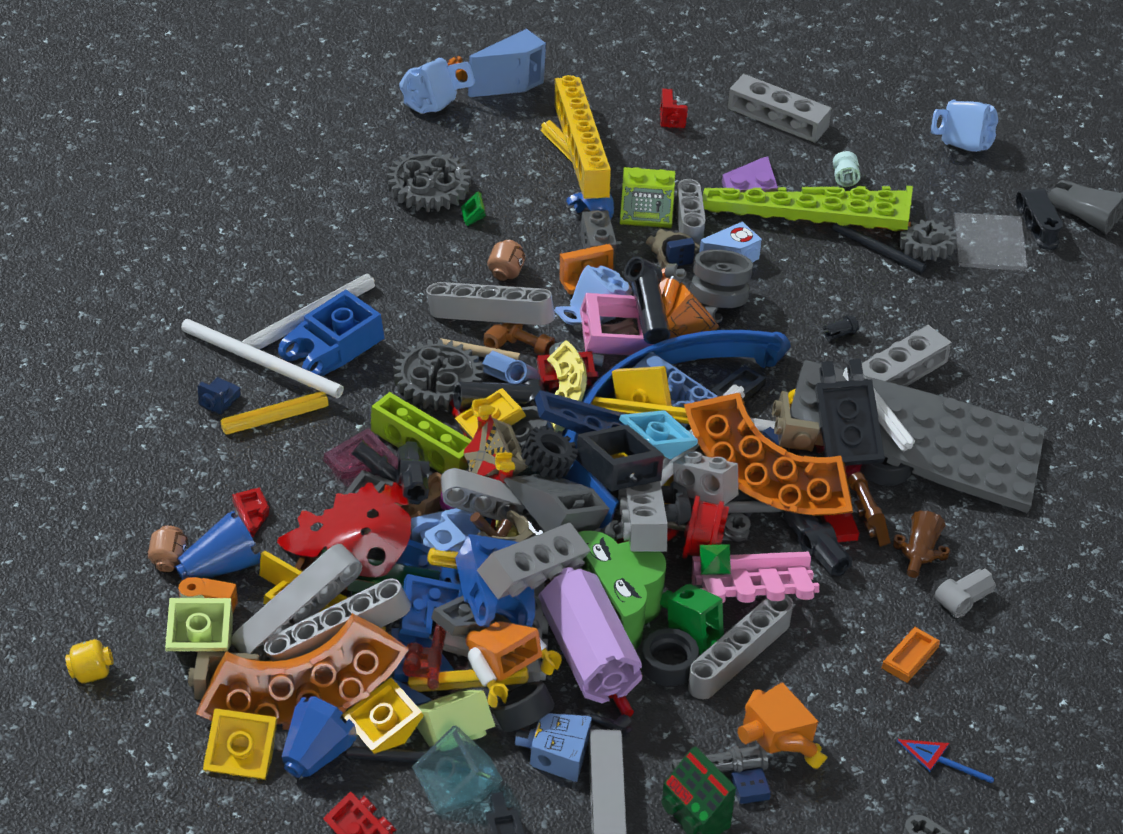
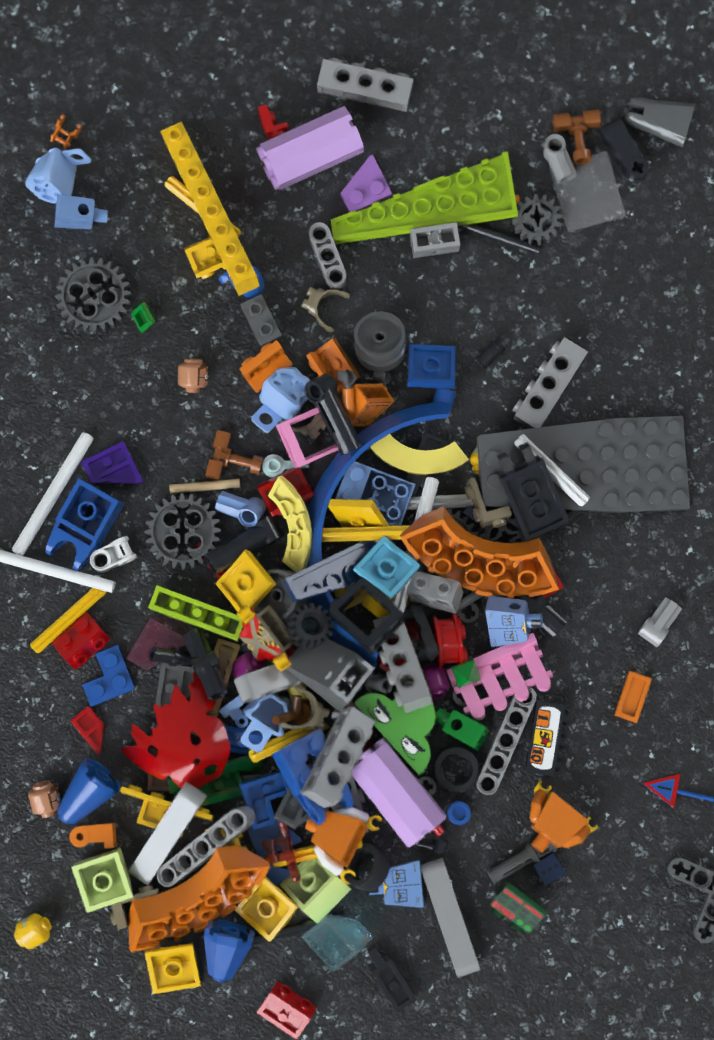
camera: 15 degrees left, 40 degrees up
(218, 395) = (16, 615): dark blue bracket -> none
(280, 434) = (80, 641): none -> red bracket
(299, 479) = (115, 679): none -> blue plate
(349, 371) = (113, 554): none -> white piece
(392, 306) = (112, 467): none -> dark purple wing
(440, 115) = (68, 212): none -> medium blue torso
(490, 303) = (191, 438): light grey beam -> none
(508, 65) = (114, 124): medium blue slope -> none
(559, 182) = (204, 258): none -> yellow bracket
(647, 197) = (286, 251): slope -> none
(657, 703) = (459, 812): none -> blue tile
(678, 569) = (436, 680): none -> magenta head
(680, 251) = (333, 310): dark blue tile -> none
(704, 128) = (310, 148): none -> lavender brick
(721, 378) = (419, 461): none -> light yellow tile
(736, 239) = (376, 287): light blue slope -> none
(771, 316) = (431, 366): none -> blue tile
(784, 528) = (509, 620): none -> medium blue torso
(791, 653) = (546, 738): none -> brick
(810, 224) = (434, 240): none -> light grey brick
(846, 169) = (445, 150): light aqua wheel -> none
(867, 507) = (568, 568): reddish brown plate -> none
(924, 534) = (614, 576): reddish brown piece -> none
(966, 125) = (537, 56): light blue piece -> none
(966, 202) = (559, 160): none -> light grey piece
(993, 191) = (578, 126): none -> dark orange bar

